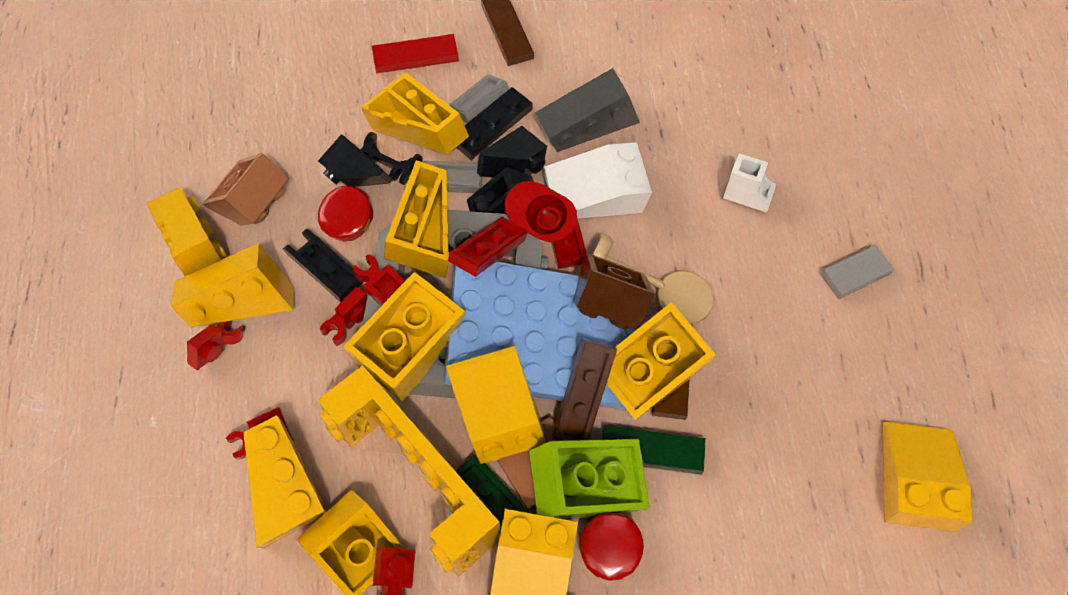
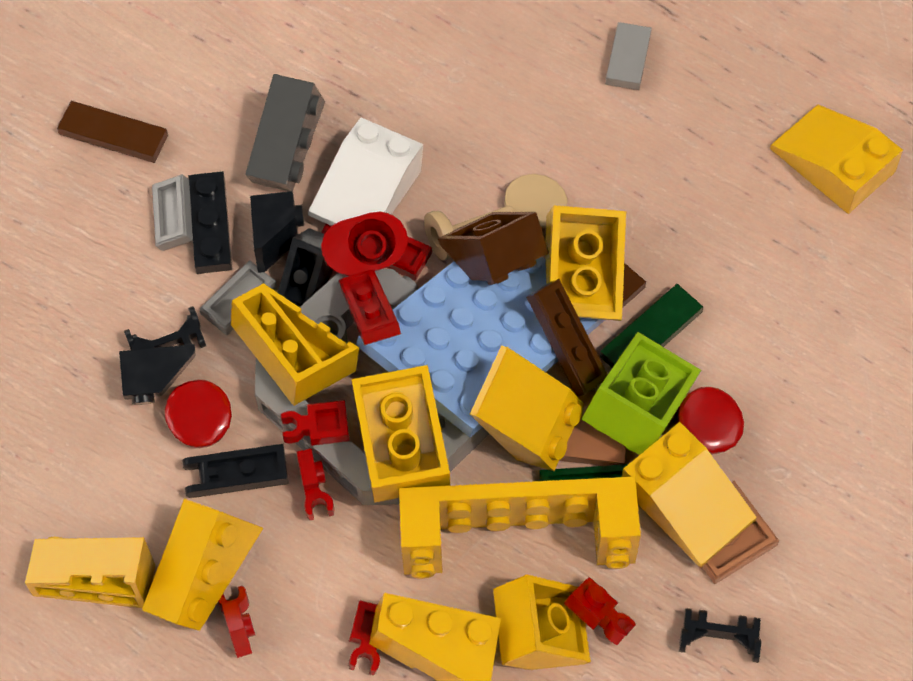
camera: 50 degrees left, 0 degrees up
(247, 190) = (85, 486): nougat slope -> none
(415, 53) = (61, 231): red tile -> none
(415, 116) = (151, 276): yellow wedge -> none
(749, 184) = (476, 65): white brick -> none

